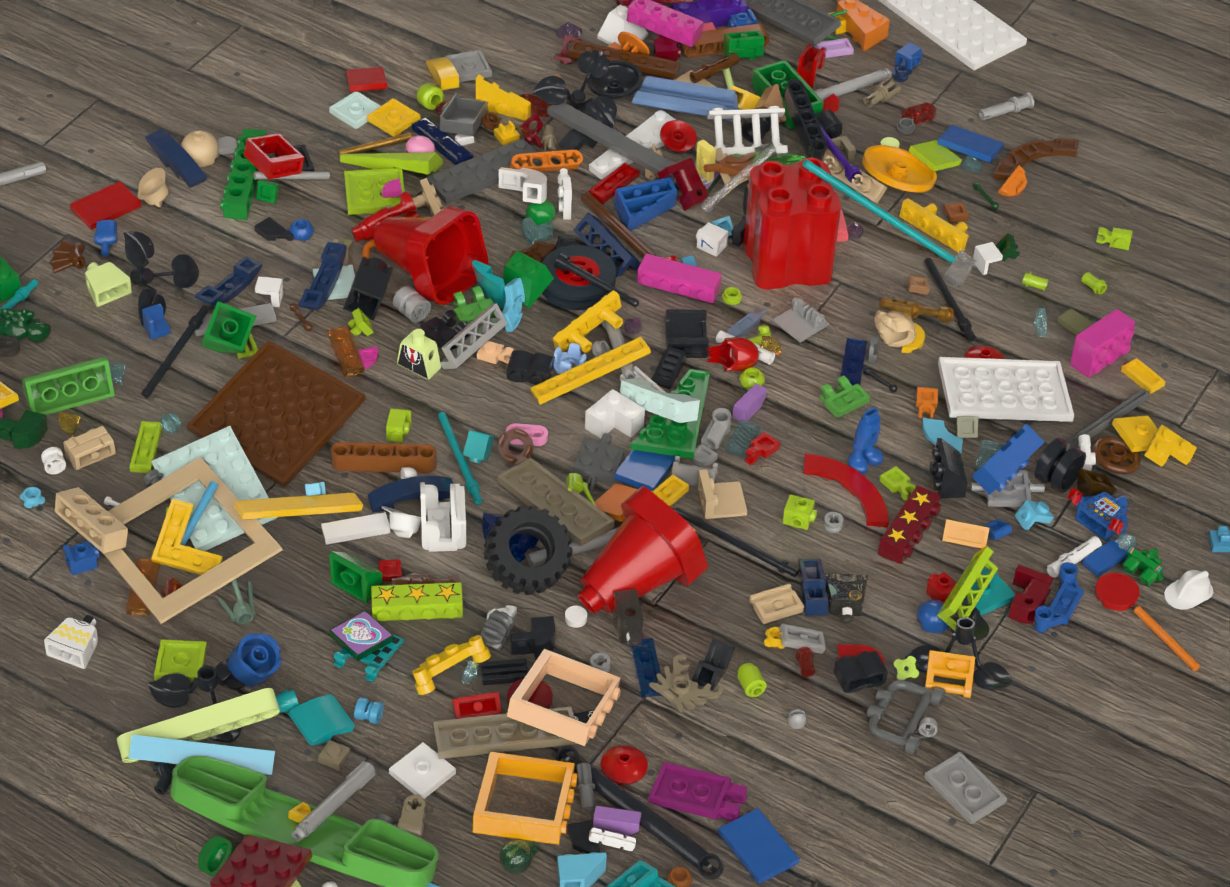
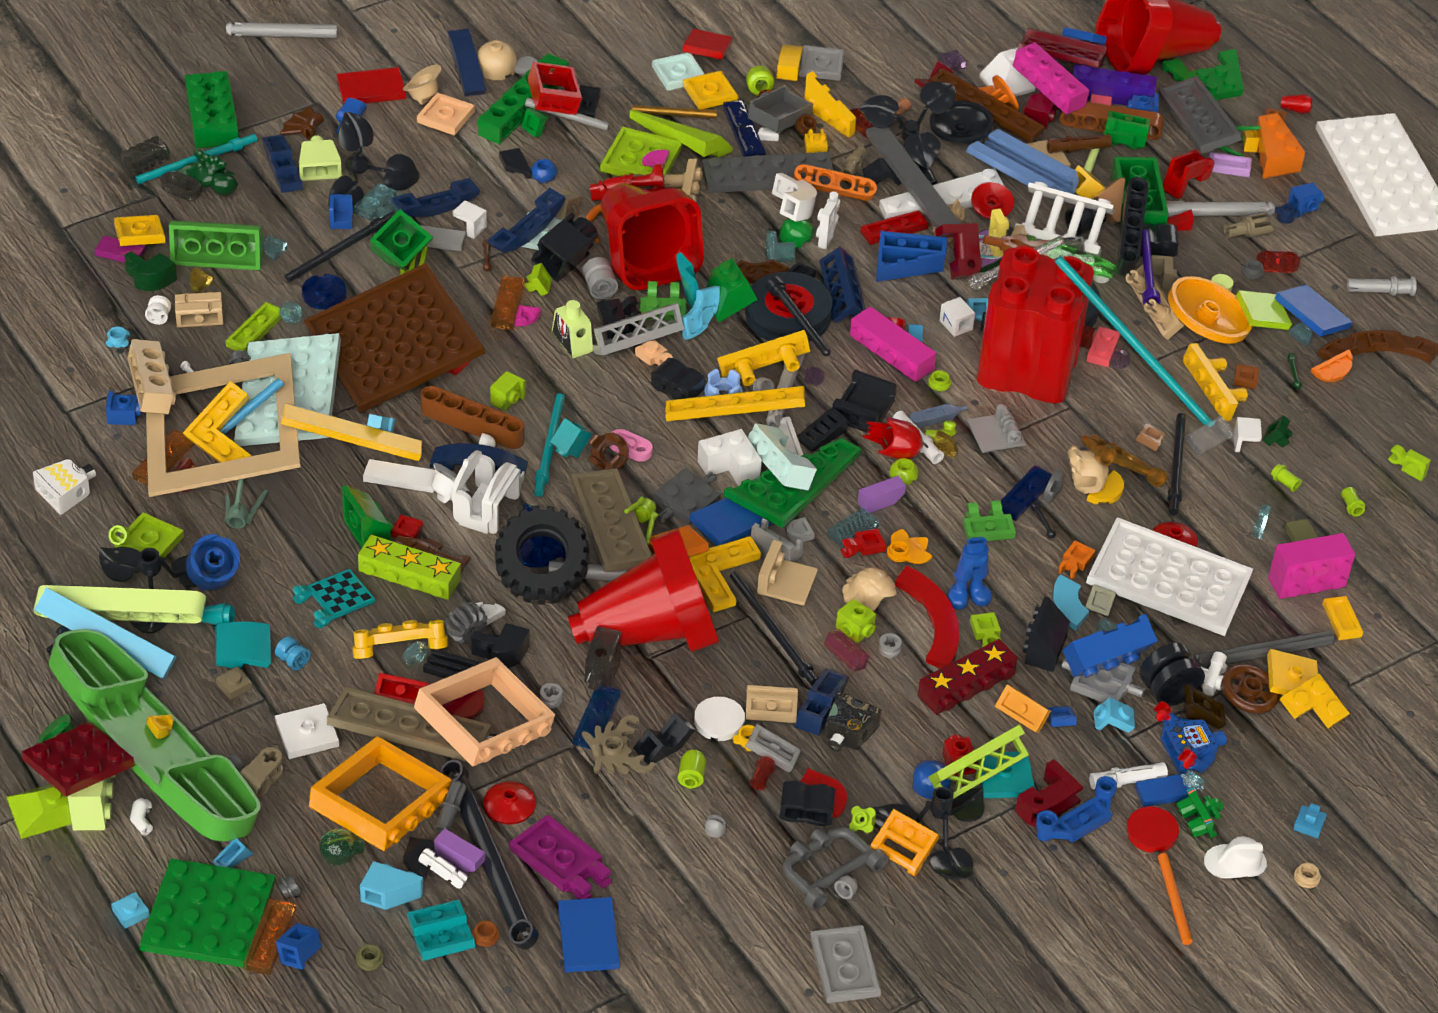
camera: 25 degrees right, 0 degrees up
(72, 296) = (282, 163): none -> dark blue slope
(158, 671) = (117, 540): none -> lime hinge
(176, 303) = (376, 203): none -> clear light blue plate
(184, 395) = (324, 291): none -> clear blue tile
(187, 208) = (445, 113): none -> light nougat plate
(355, 781) = (232, 714): light grey piece -> none
(361, 635) = (333, 579): tile -> none
(419, 144) = (714, 124): bright pink hair -> none
(531, 135) = (836, 150): dark red bracket -> none
(575, 616) = (559, 640): white tile -> none
(616, 225) = (867, 270): reddish brown axle -> none
(717, 428) = (831, 507): light grey piece -> none
(743, 631) = (719, 718): none -> white tile
(791, 480) = (869, 587): none -> tan hair
(795, 440) = (908, 549): none -> light orange plate
(805, 538) = (846, 650): none -> clear pink piece

